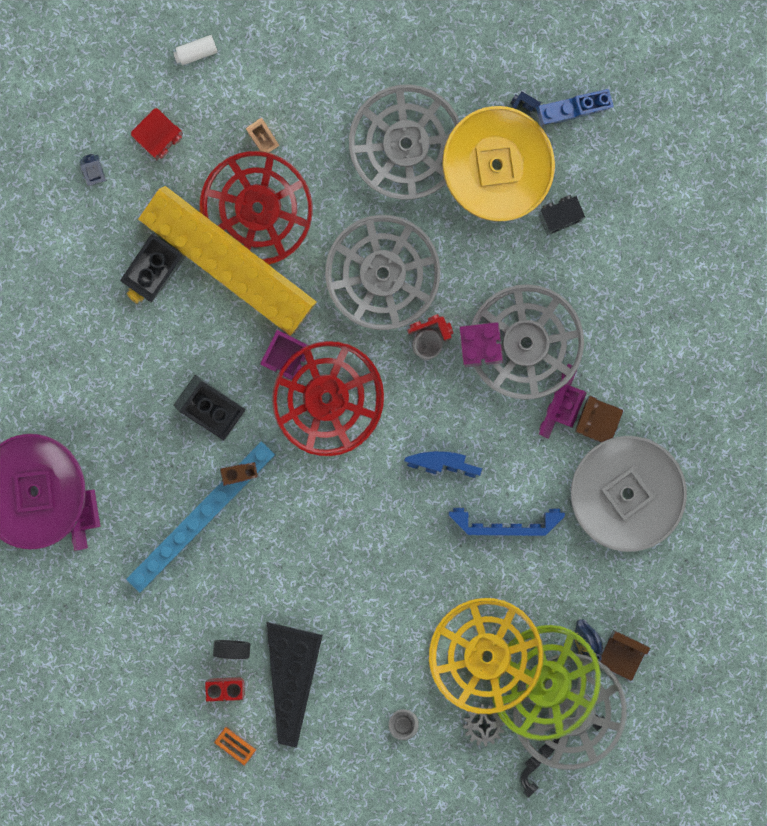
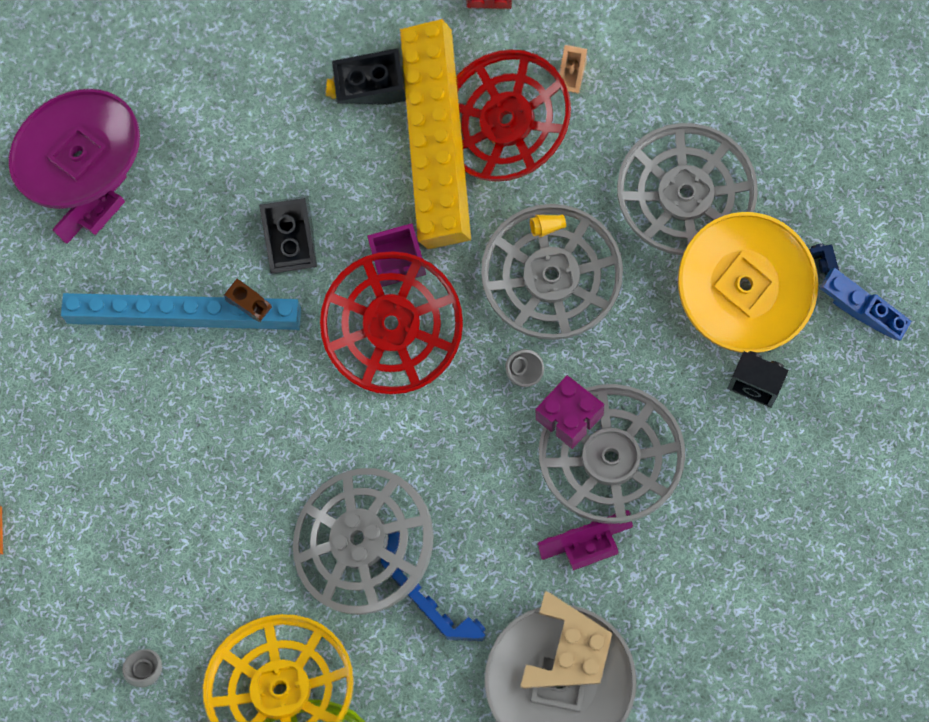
camera: 50 degrees right, 15 degrees down
(227, 681) = (54, 481): red piece -> none
(231, 649) = (78, 443): black tyre -> none
(292, 671) = (107, 519): black wing -> none
(353, 249) = (545, 224): none -> yellow cone
(435, 460) = (425, 473): blue slope -> none
(445, 328) = (548, 352): red bracket -> none
(453, 526) = (373, 545): none -> light grey dish
(598, 420) = (603, 587): reddish brown bracket -> none
(623, 468) = (579, 653): none -> tan wing

